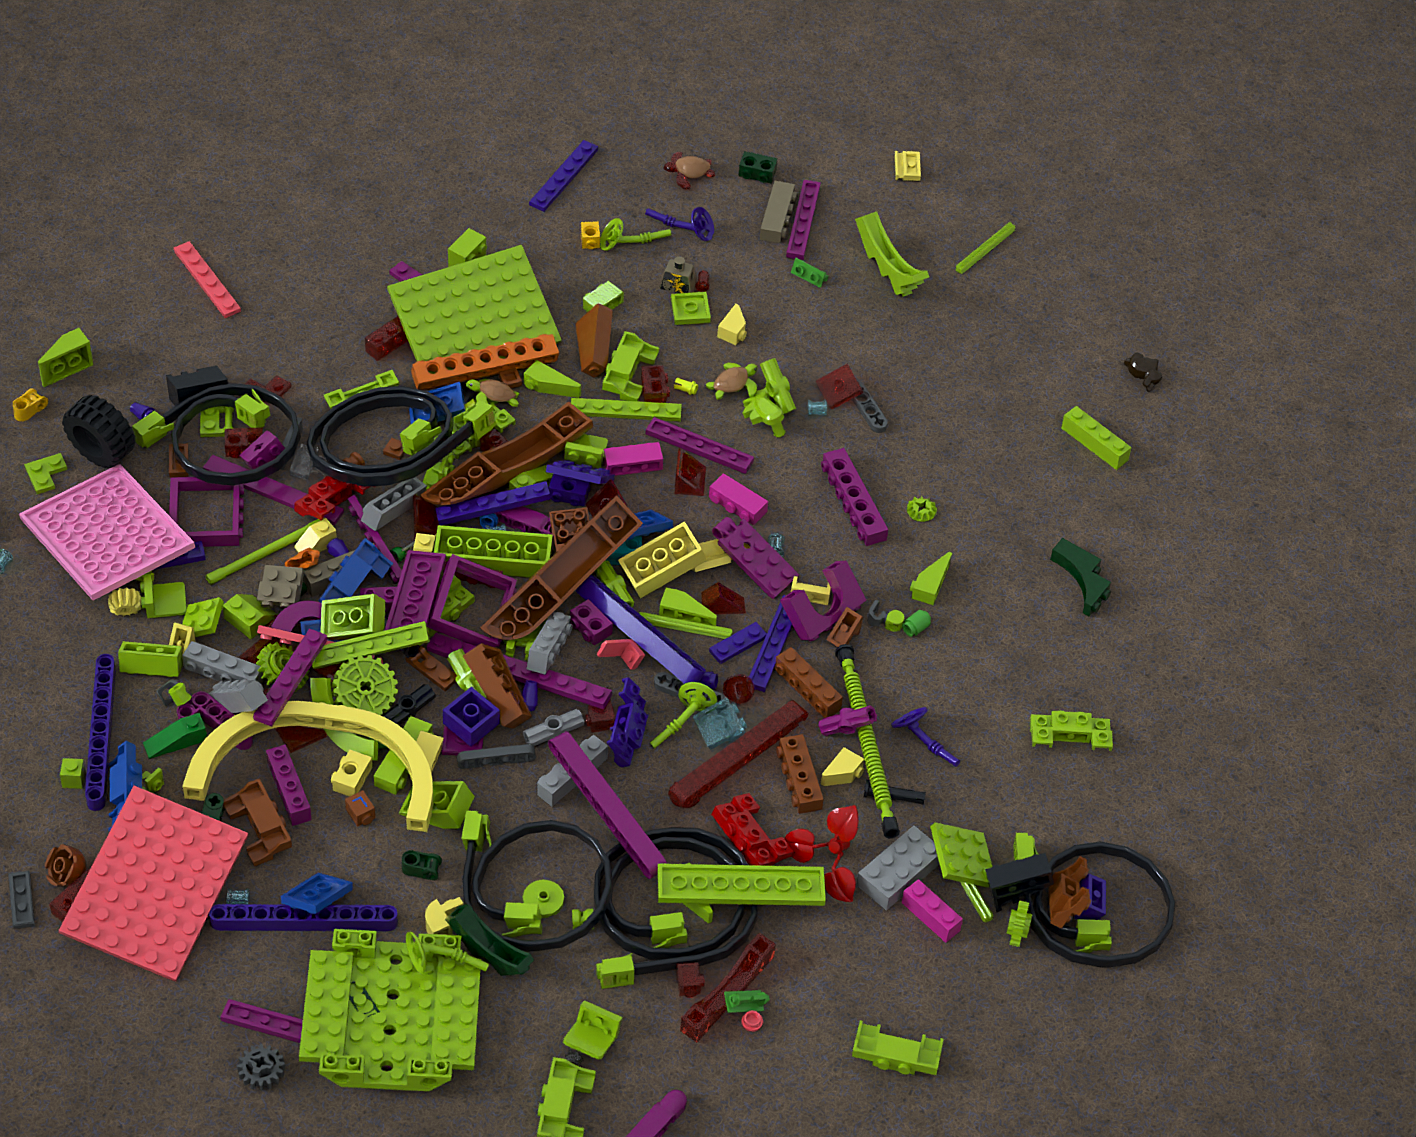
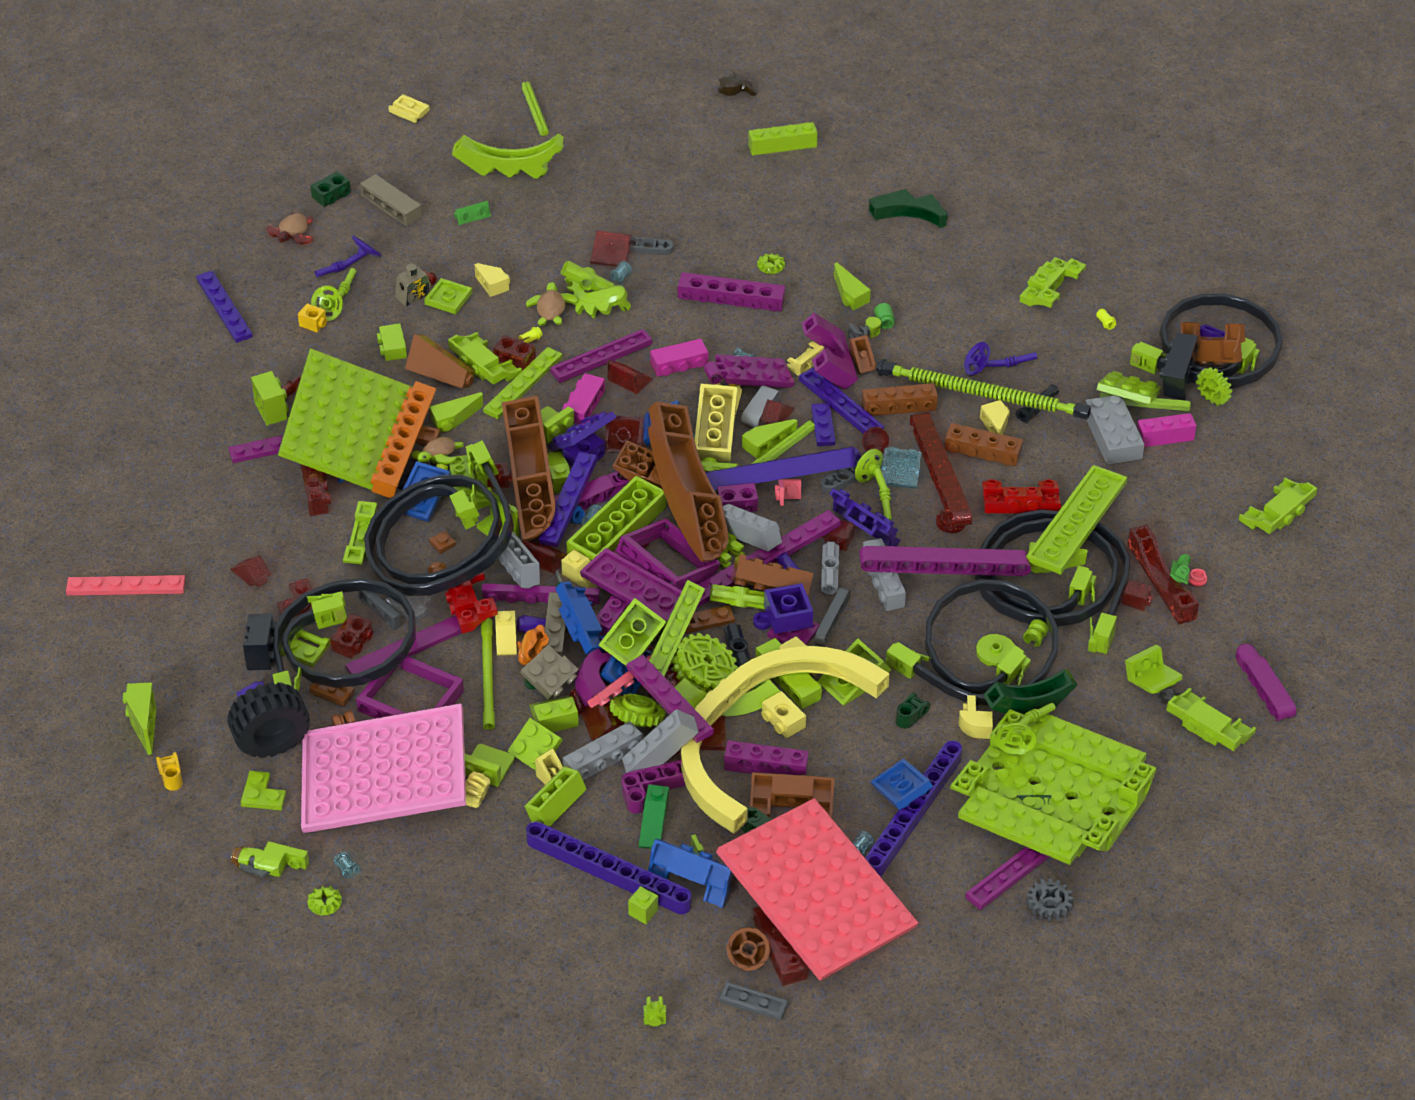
camera: 55 degrees left, 5 degrees down
(148, 483) = (348, 717): none -> dark orange wheel
(176, 691) = (614, 789): lime leg -> none
(262, 451) = (383, 623): magenta brick -> none
(271, 345) = (252, 571): none -> clear red slope
(360, 808) = (825, 724): dark orange brick -> none
(735, 581) = (754, 410): none -> light grey beam
(803, 219) = (416, 192): magenta plate -> none
(844, 824) = (1074, 426): red plant -> none
(847, 720) = (960, 390): magenta piece -> none
(1055, 801) = (1108, 321): none -> neon yellow pin

